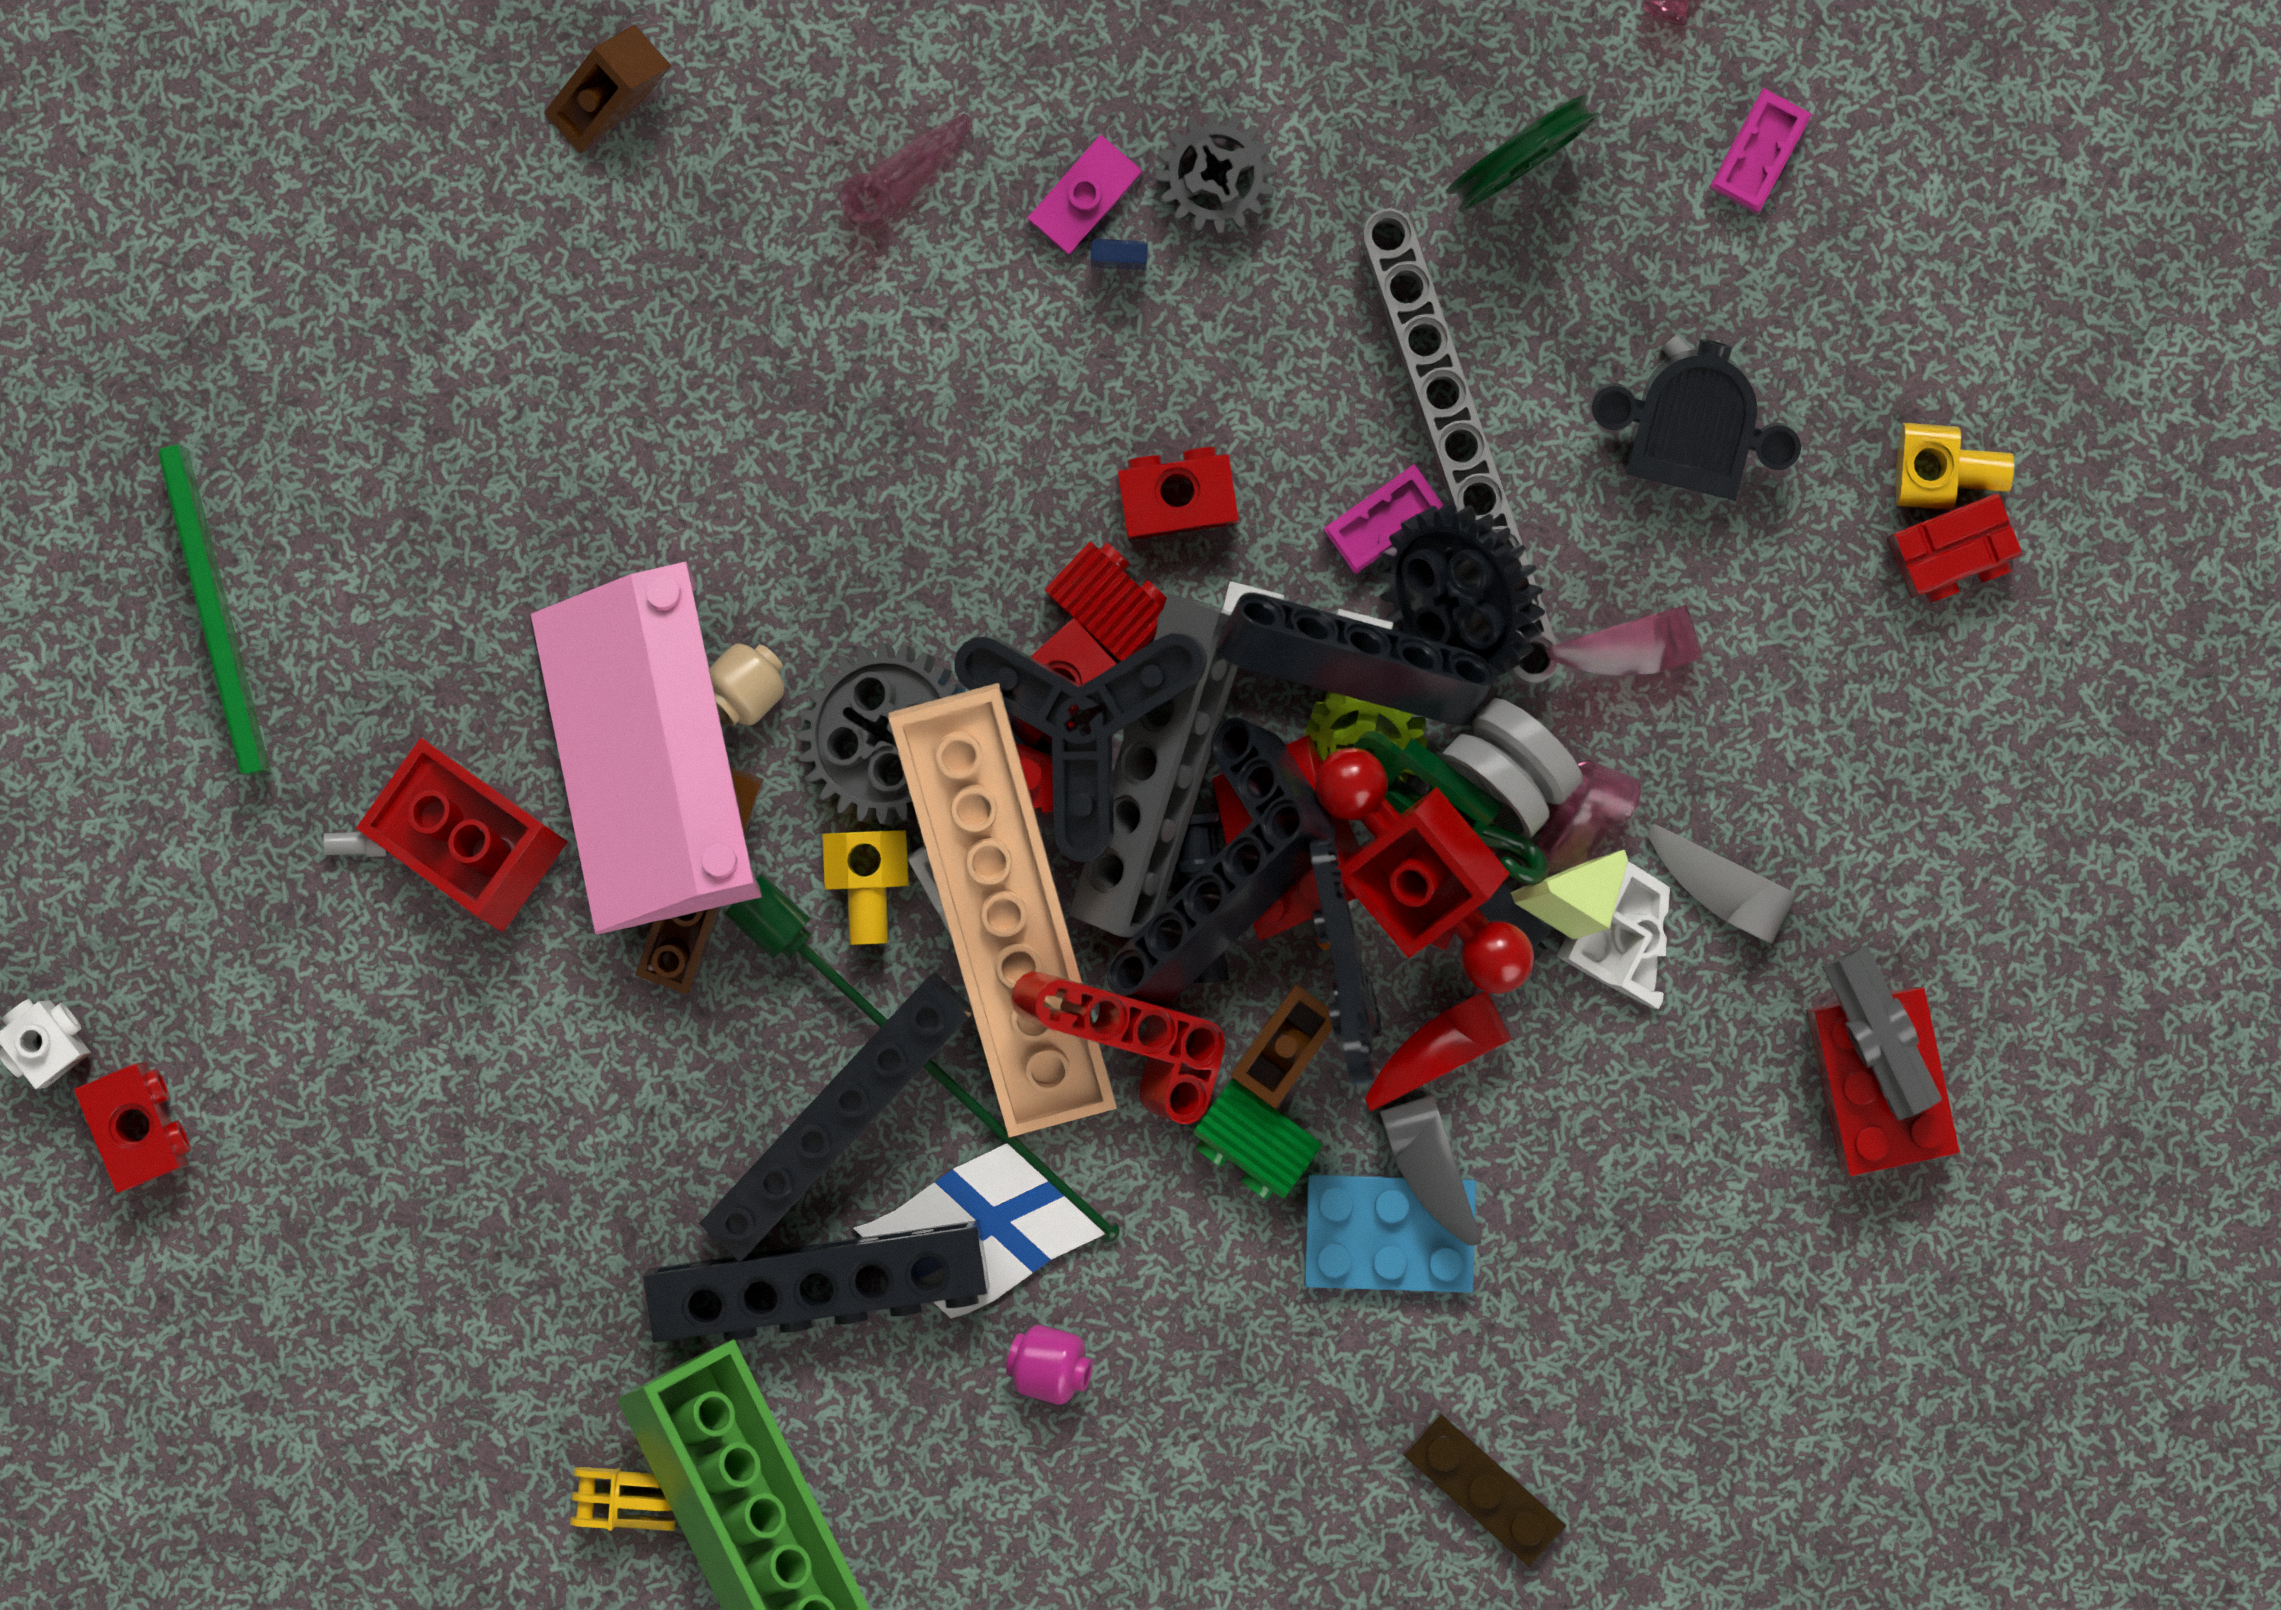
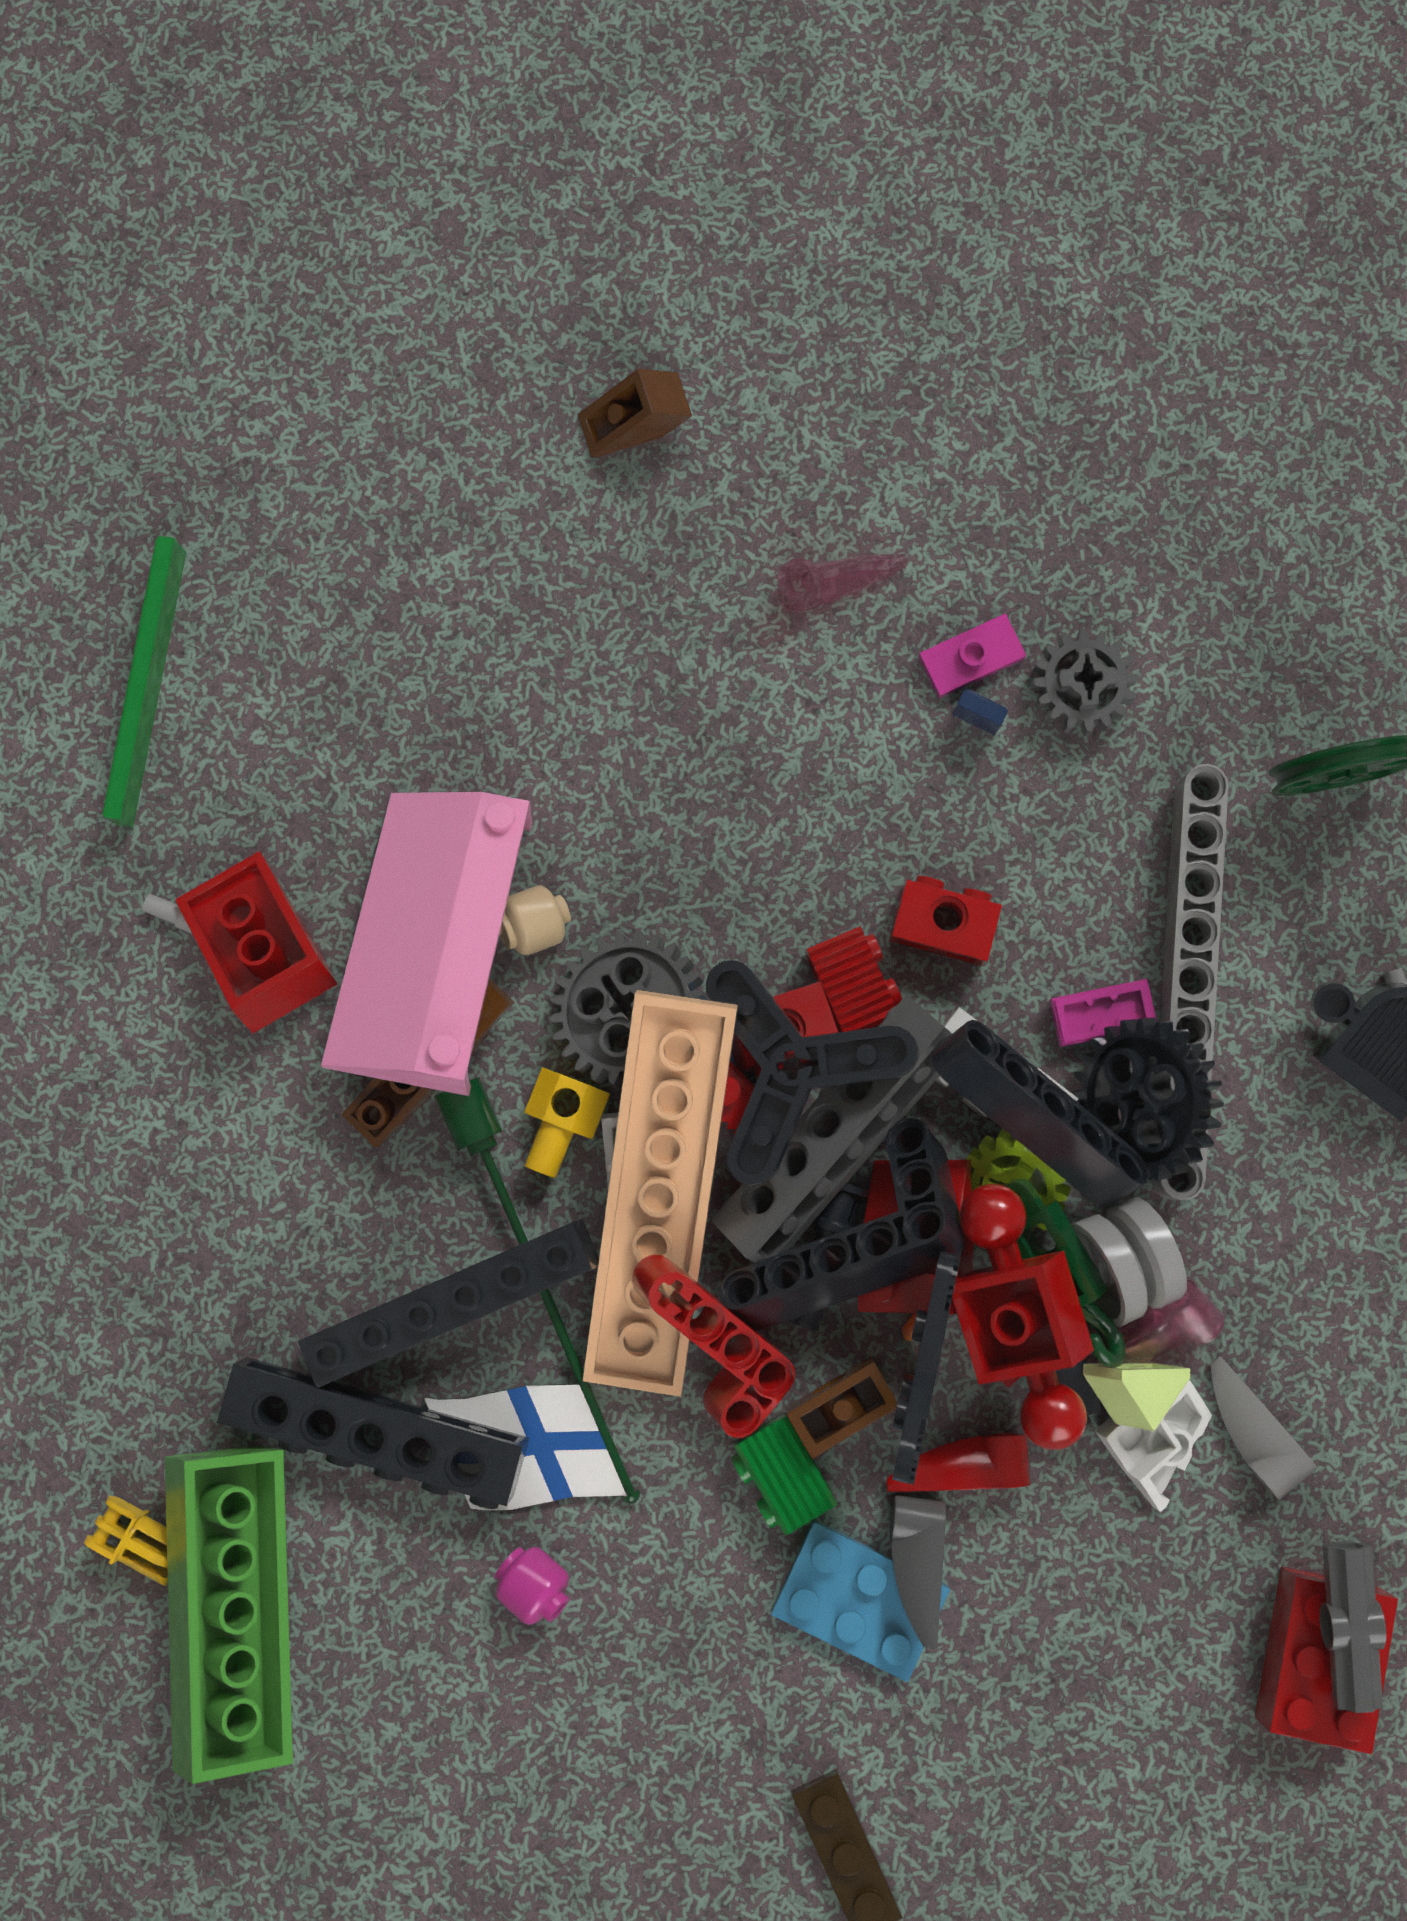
camera: 30 degrees right, 5 degrees down
(1634, 647) = (1267, 1205): clear pink piece -> none

